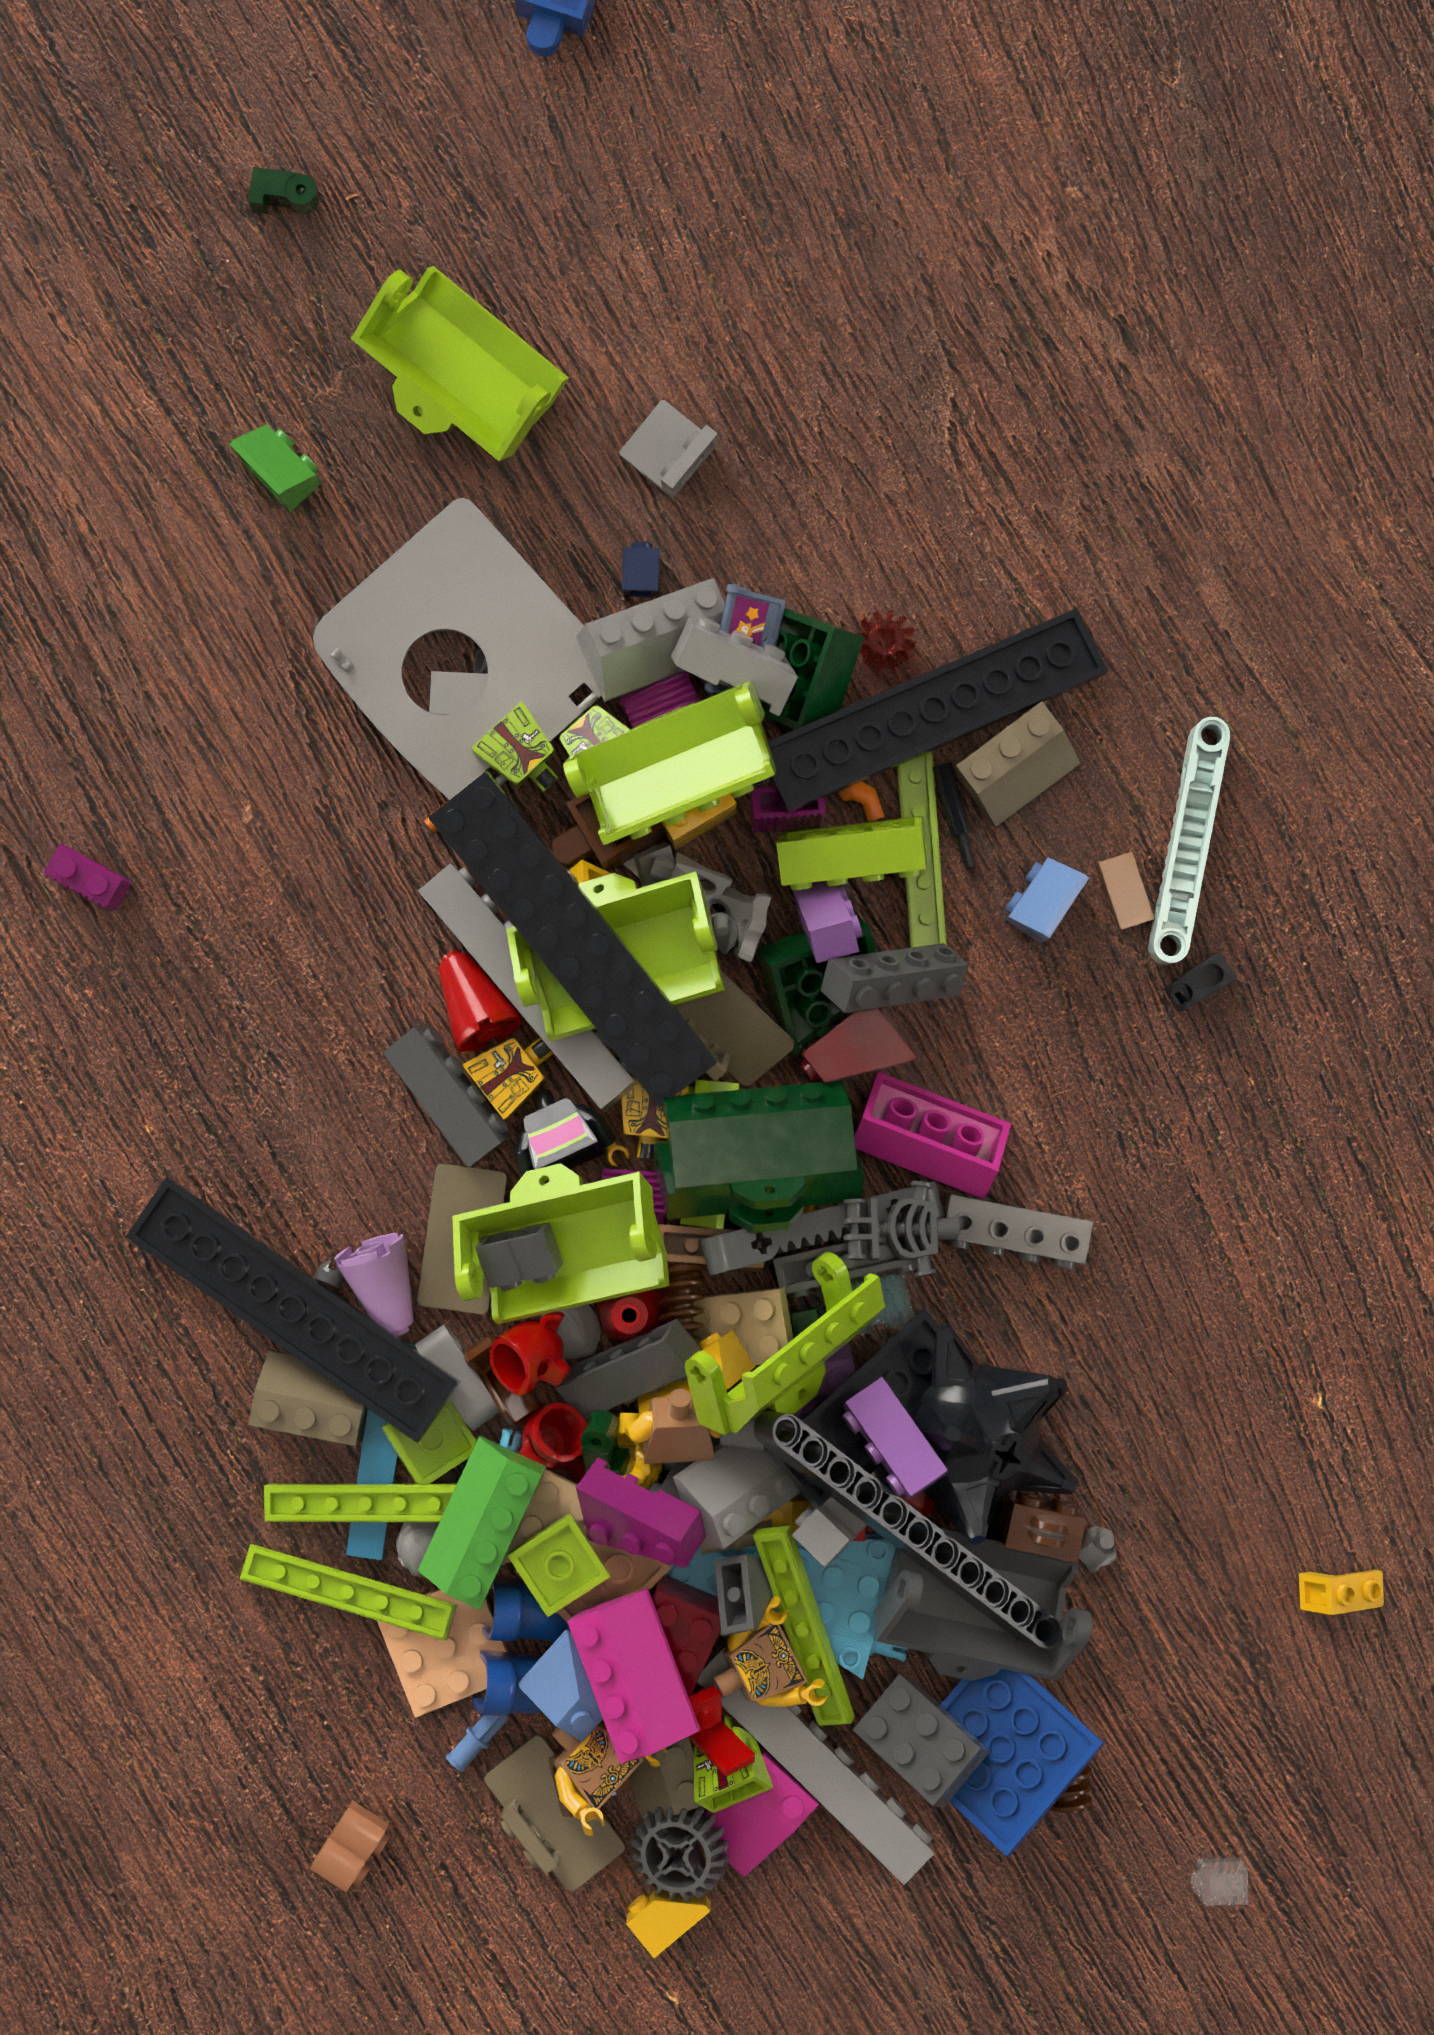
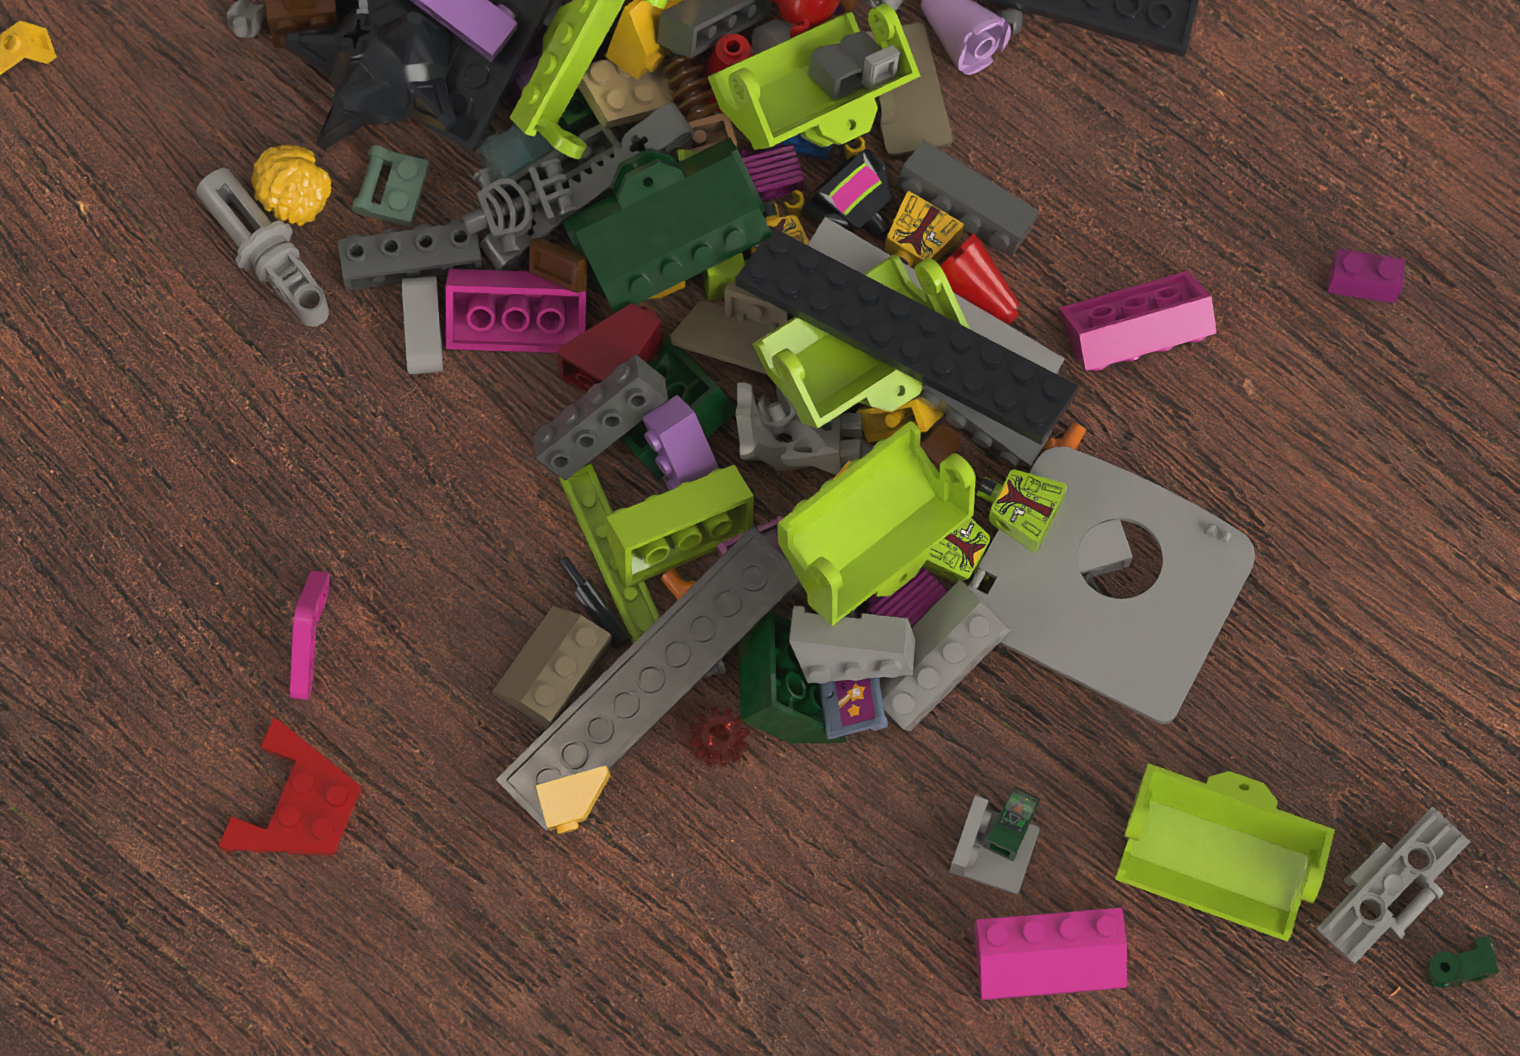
camera: 155 degrees right, 15 degrees down
(276, 465) = (1355, 695): bright green slope -> none
(319, 288) = (1385, 878): none -> light grey piece
(328, 913) = (1138, 320): none -> dark pink slope
(490, 1236) = (880, 67): none -> light grey tile
(641, 570) = (974, 722): dark blue brick -> none
(644, 458) = (1012, 824): none -> leg
(652, 335) = (1051, 953): none -> dark pink slope
(880, 1153) = (558, 265): none -> reddish brown tile
(999, 1307) = (401, 191): none -> sand green plate
(1027, 1152) = (422, 325): none -> light grey beam
(1045, 899) = (483, 547): medium blue slope -> none
(1047, 621) = (571, 798): none -> yellow slope
(1111, 1346) = (290, 183): none -> yellow hair
(1125, 891) = (409, 588): medium nougat tile -> none
(1156, 1275) = (266, 248): none -> light grey piece
(1189, 840) = (364, 650): light aqua gear -> none
(1200, 982) = (311, 527): black leg -> none
(1241, 876) = (304, 633): none -> dark pink beam
(1285, 710) = (310, 809): none -> red wing

